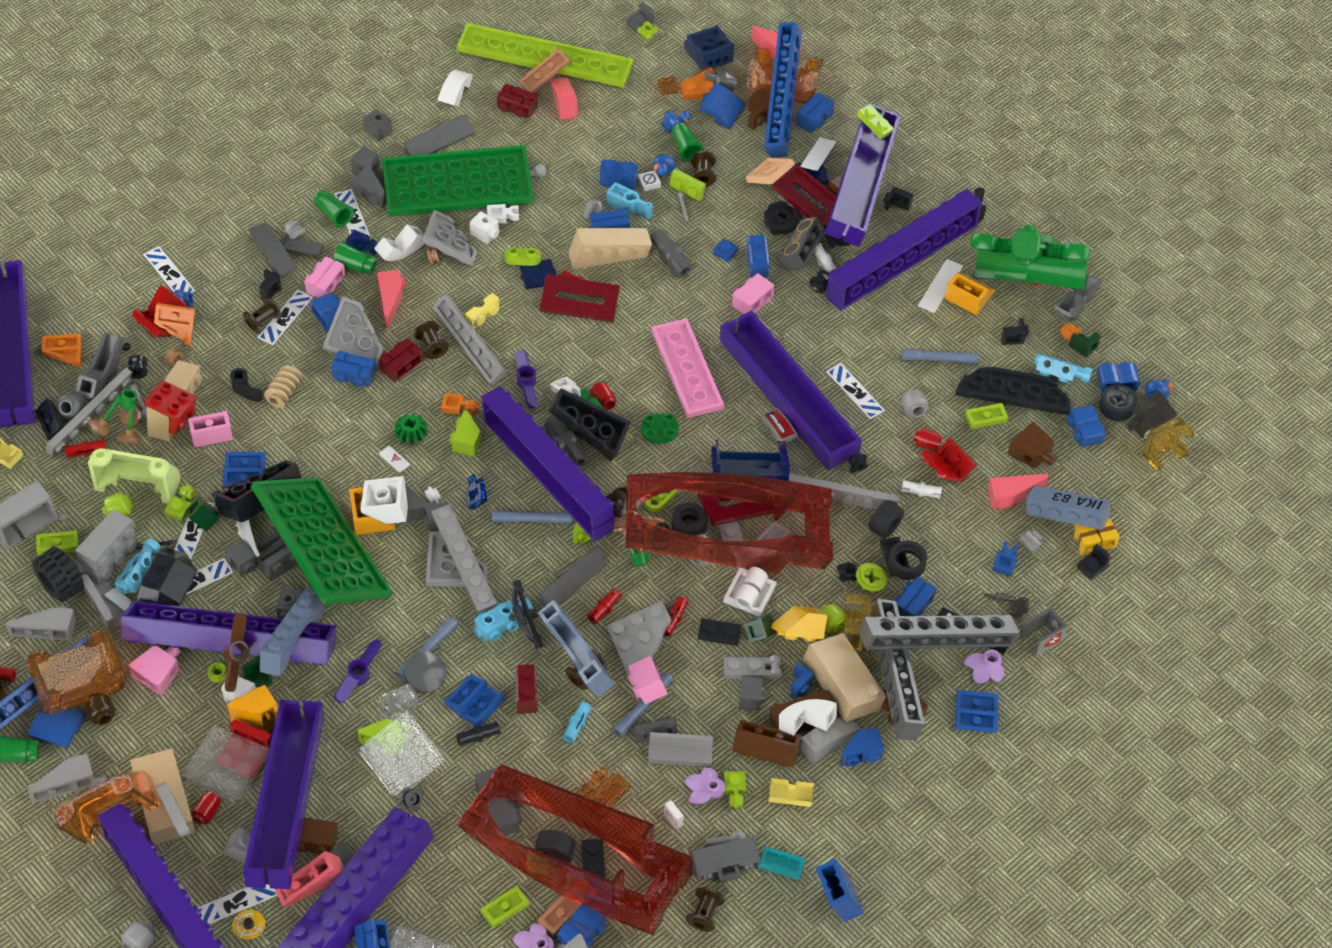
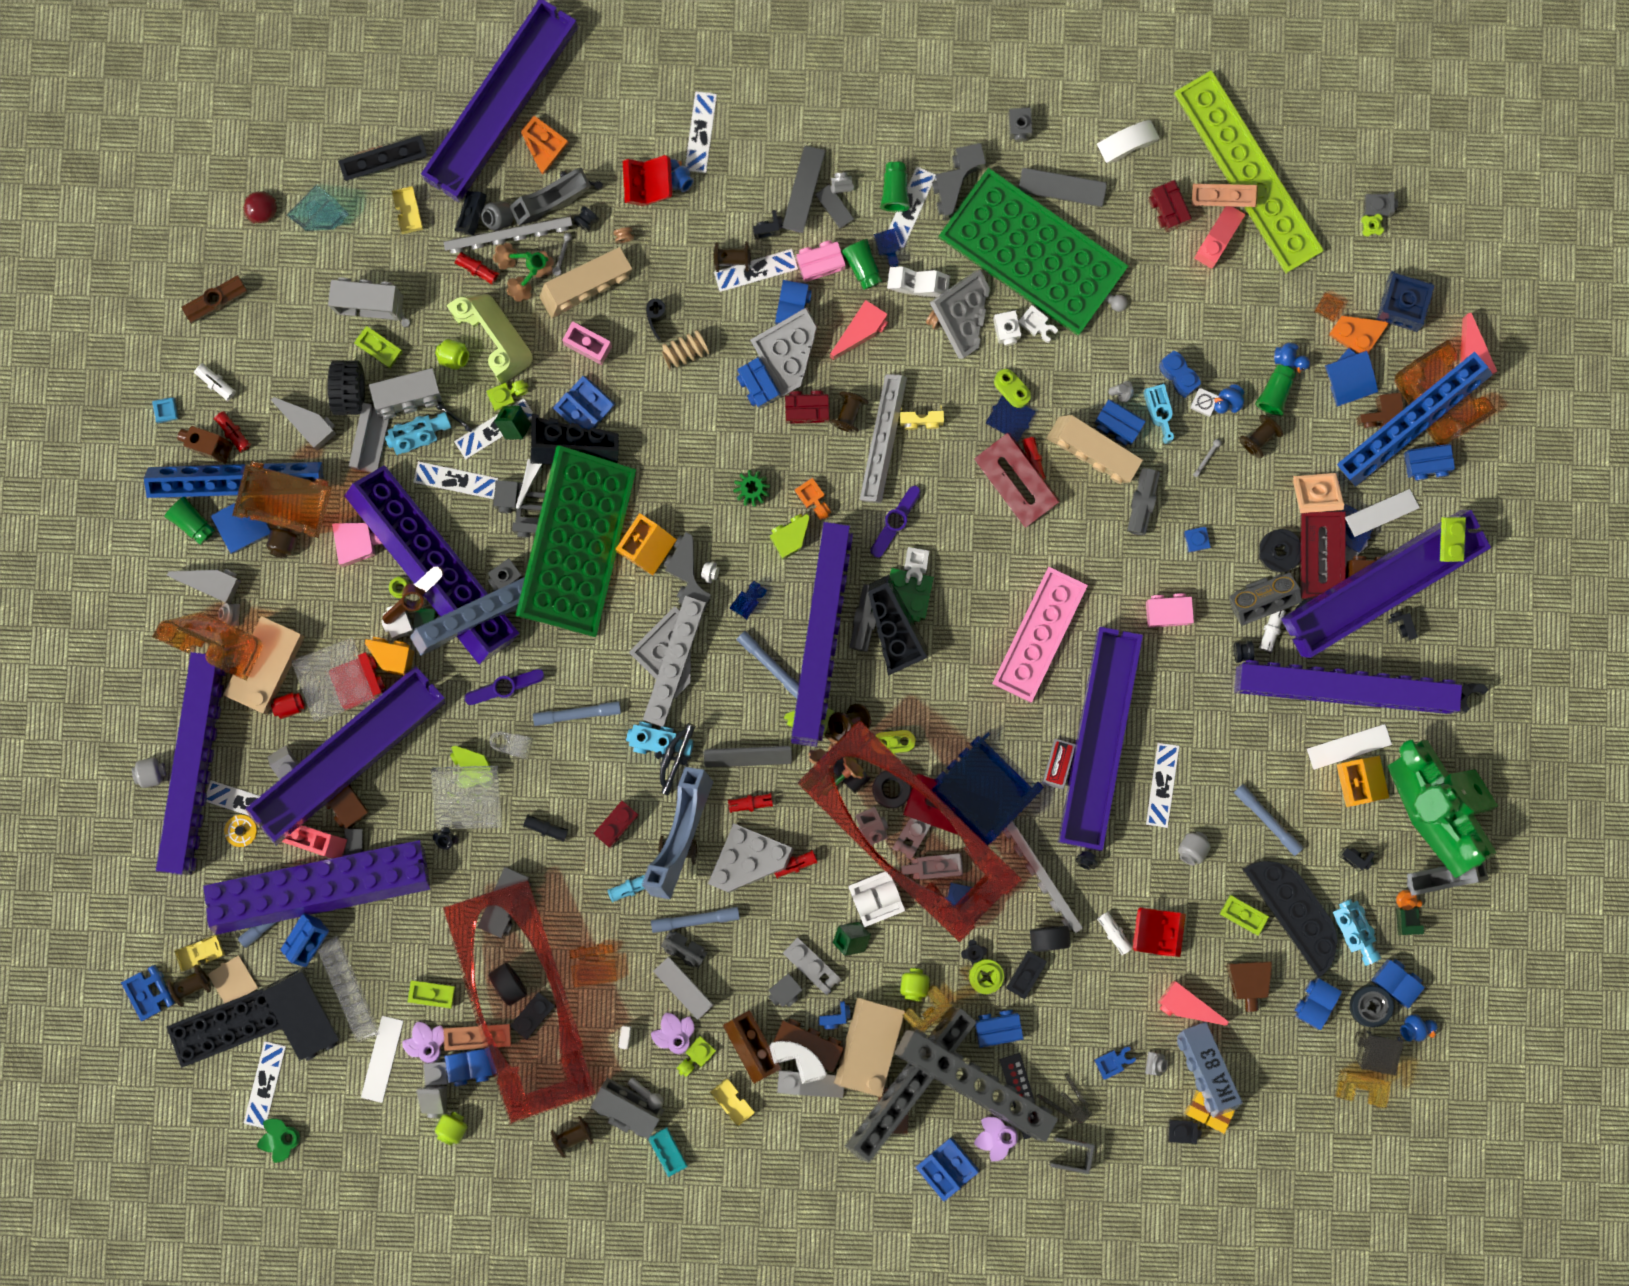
camera: 45 degrees right, 30 degrees up
(118, 599) = (383, 452): white sticker -> none
(167, 578) = (431, 465): black wedge -> none
(173, 403) = (568, 296): red bracket -> none
(173, 809) = (250, 696): light grey beam -> none
(176, 320) = (650, 202): orange wing -> none
(385, 499) = (656, 551): white slope -> none
(394, 459) = (715, 502): white sticker -> none
(425, 671) = (554, 735): dark grey dish -> none
(474, 700) = (571, 794): blue slope -> none
(603, 395) = (941, 599): red brick -> none
(646, 680) = (711, 907): bright pink brick -> none
(659, 428) = (957, 674): green dish -> none
(687, 184) = (1229, 435): lime plate -> none
(719, 632) = (818, 910): black plate -> none
(723, 78) = (1383, 348): dark grey piece -> none
(757, 255) = (1214, 575): blue brick -> none
(801, 622) = (878, 972): yellow slope -> none
(839, 890) = (678, 1222): blue brick -> none
(863, 747) = (825, 1116): blue slope -> none
(904, 572) = (1042, 993): black tyre -> none
(927, 439) = (1169, 892): red brick -> none

